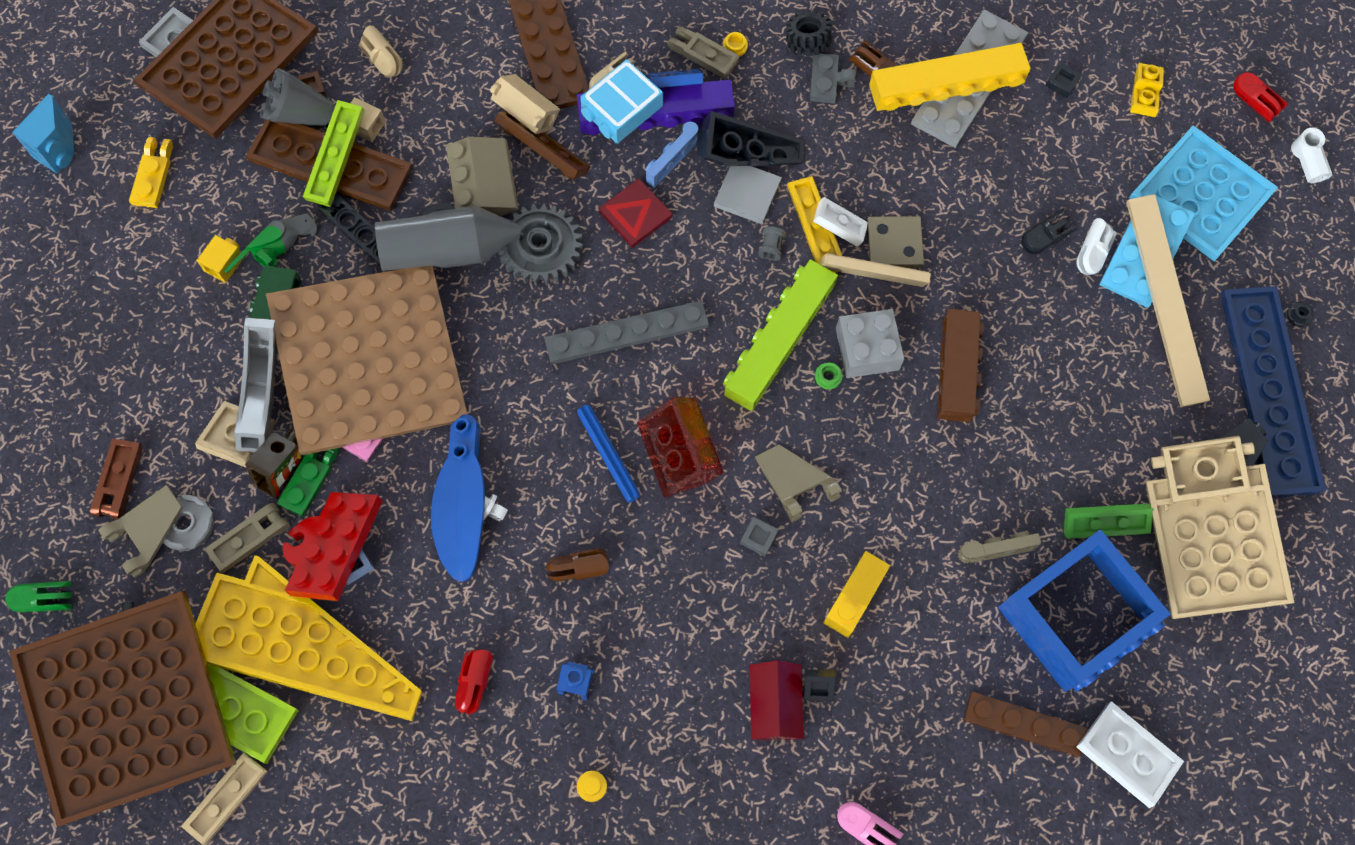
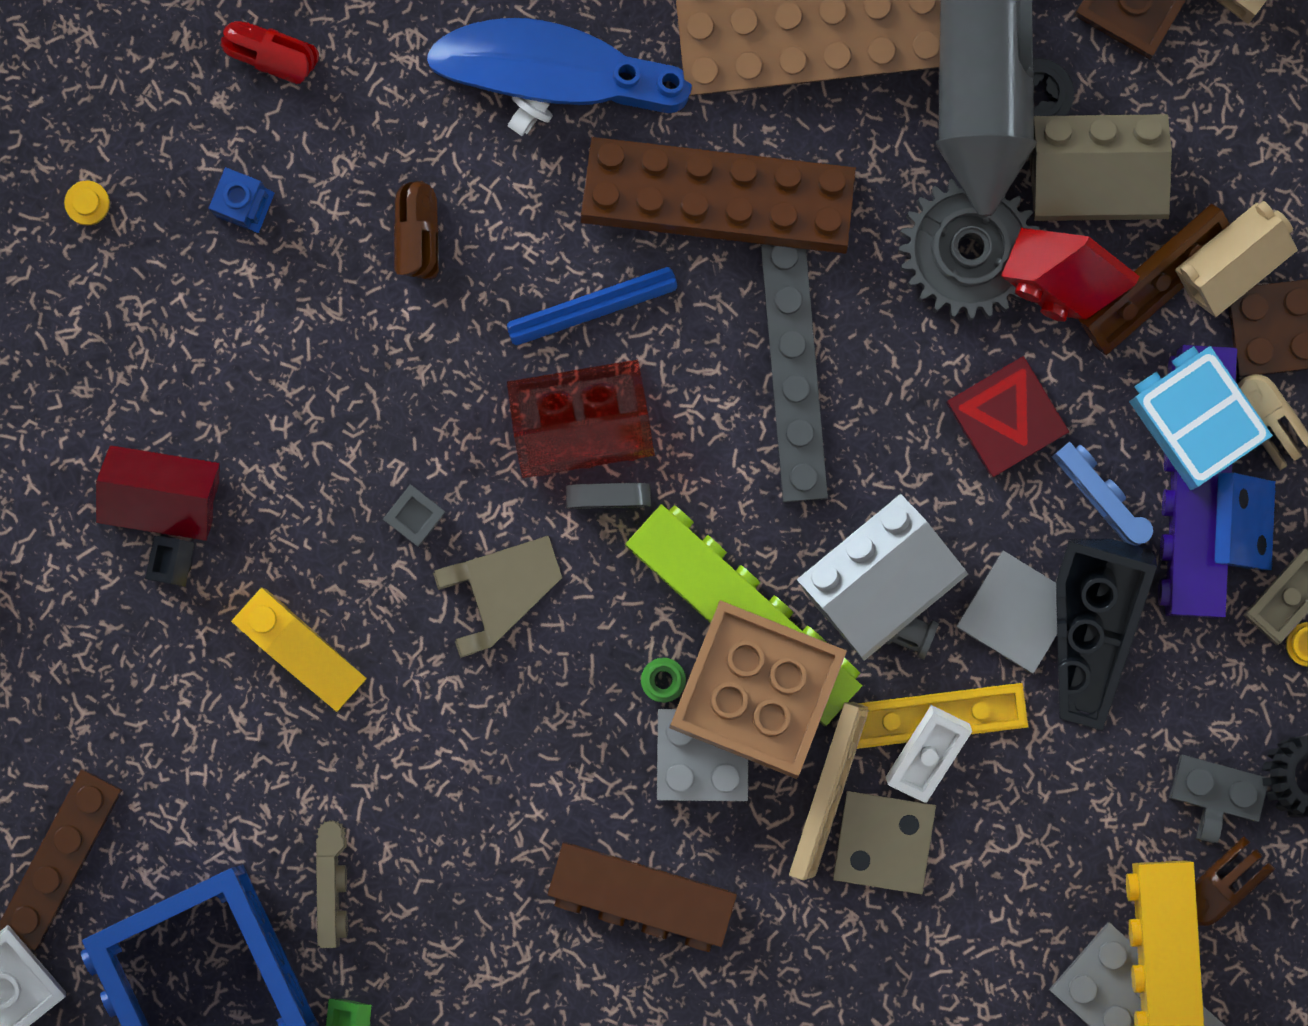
camera: 105 degrees right, 15 degrees up
(528, 389) = (718, 195): none -> reddish brown plate
(548, 182) = (1065, 273): none -> red slope
(725, 423) = (608, 496): none -> dark grey beam
(744, 258) = (882, 577): none -> light grey slope
(827, 308) = (758, 689): none -> medium nougat plate

